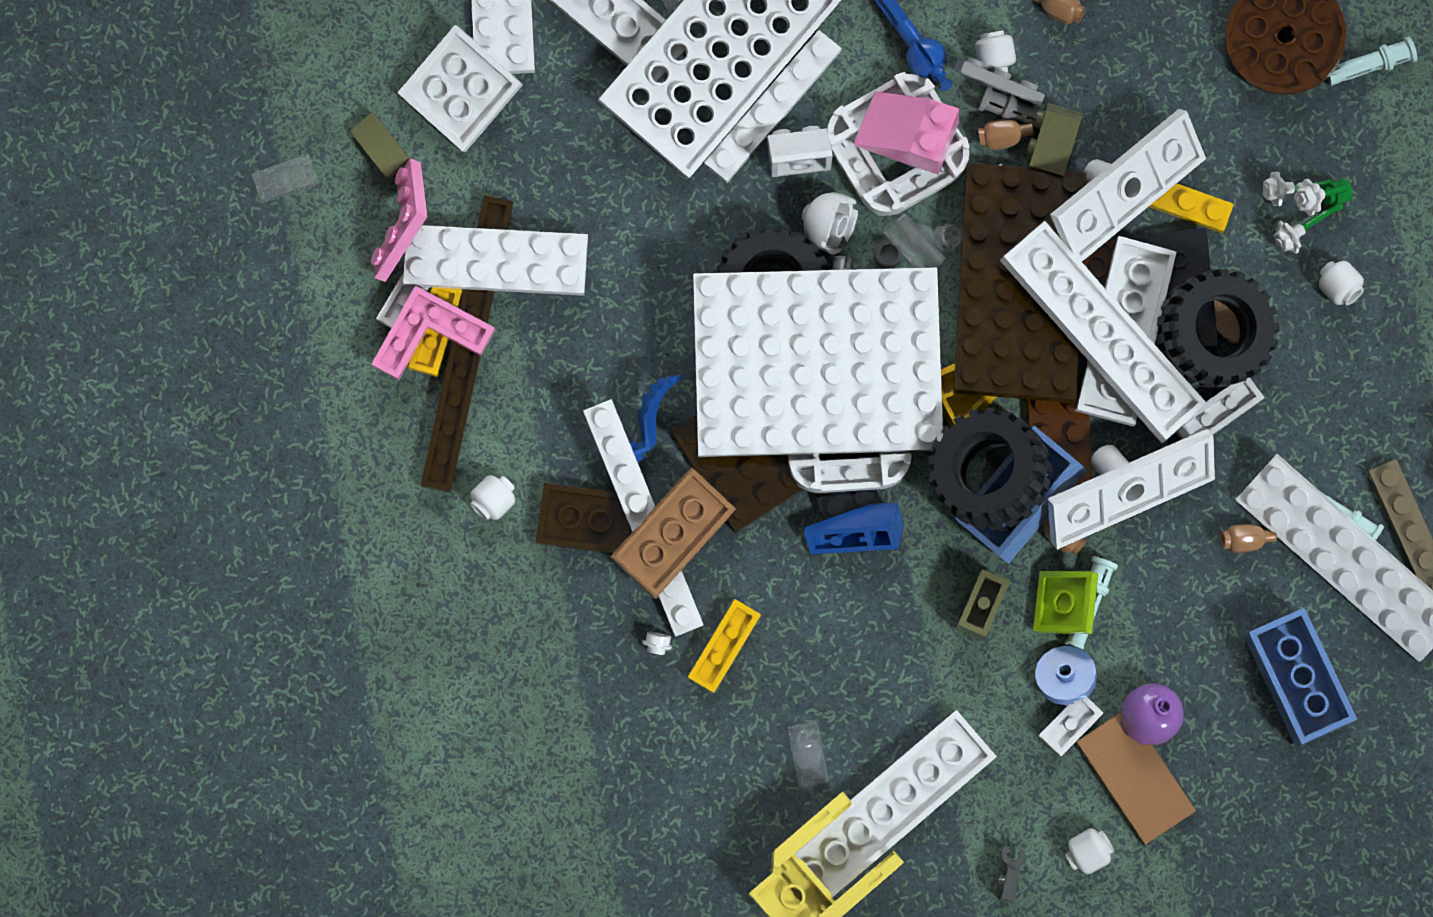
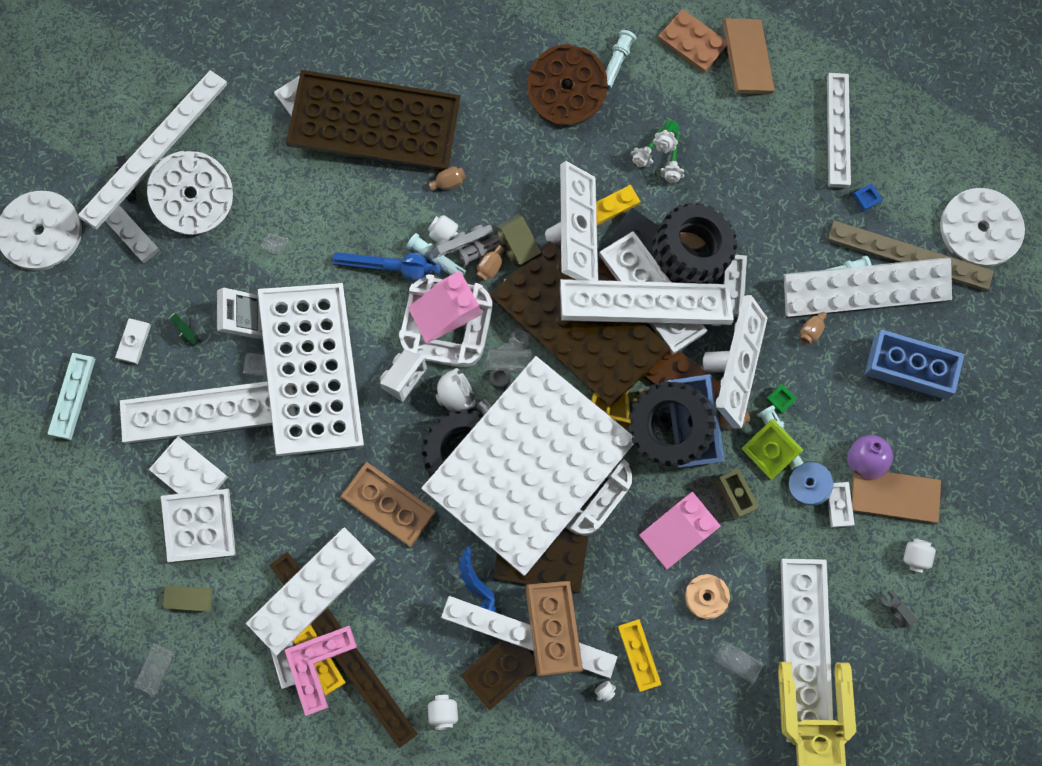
camera: 50 degrees left, 5 degrees down
(411, 217) = (246, 621): bright pink plate -> none
(651, 258) = (388, 504): none -> medium nougat tile
(772, 106) = (365, 368): white plate -> none
(842, 502) = (616, 522): black plate -> none
(847, 649) = (715, 588): none -> light nougat plate
(858, 530) = (639, 522): blue slope -> none
(892, 580) = (679, 530): none -> bright pink slope
(956, 50) = (421, 247): none -> light aqua pin
(1133, 568) = (781, 399): none -> green plate
(1341, 282) = (718, 168): white head -> none

